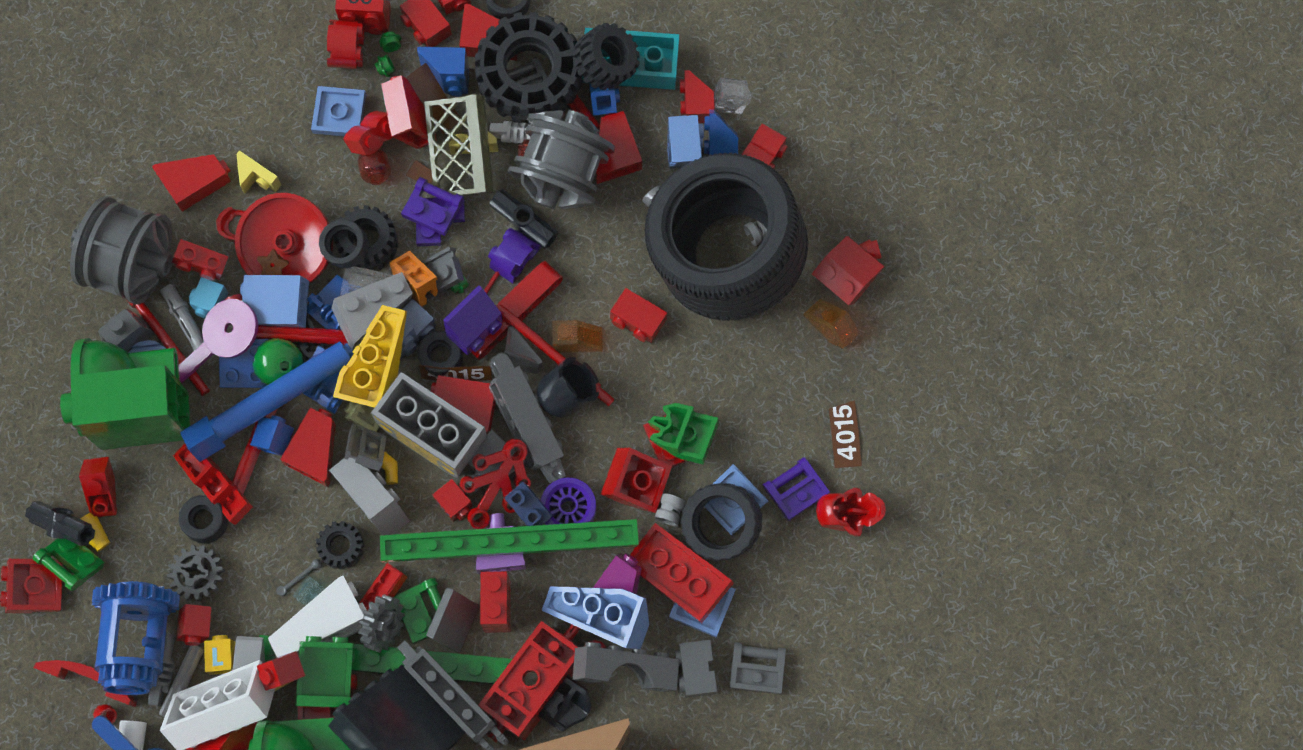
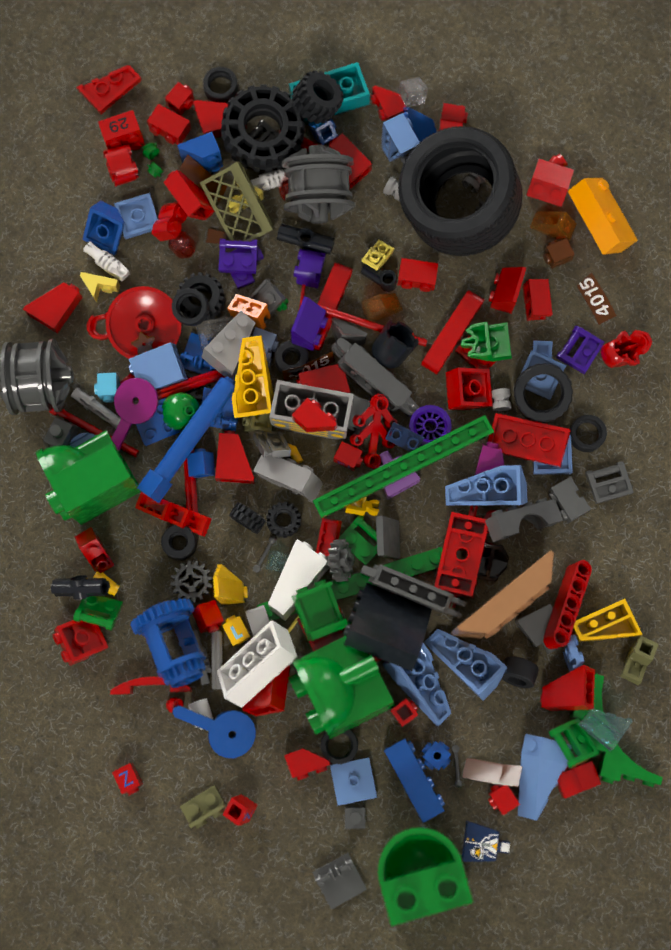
camera: 20 degrees left, 5 degrees up
(199, 259) = (92, 360): red plate -> none
(230, 596) = (227, 587): none -> yellow wedge
(277, 151) = (107, 262): none -> white hinge
(280, 670) = (290, 621): red brick -> none
(292, 108) = (104, 227): none -> blue slope
(295, 524) = (247, 518): none -> black tyre
(418, 434) = (312, 418): none -> red slope
(442, 568) = (362, 506): none -> yellow plate
(495, 602) = (413, 512): red brick -> none
(591, 297) = (379, 277): none -> black piece
(600, 273) = (378, 255): none -> light yellow slope
(648, 402) = (452, 332): none -> red beam
(738, 378) = (507, 289): none -> red slope
(750, 468) = (543, 347): none -> medium blue plate
(764, 577) = (596, 422): none -> black tyre
(770, 405) = (537, 299): none -> red hinge
(821, 359) = (558, 253): none -> reddish brown brick
(894, 336) = (602, 215): none -> light orange brick

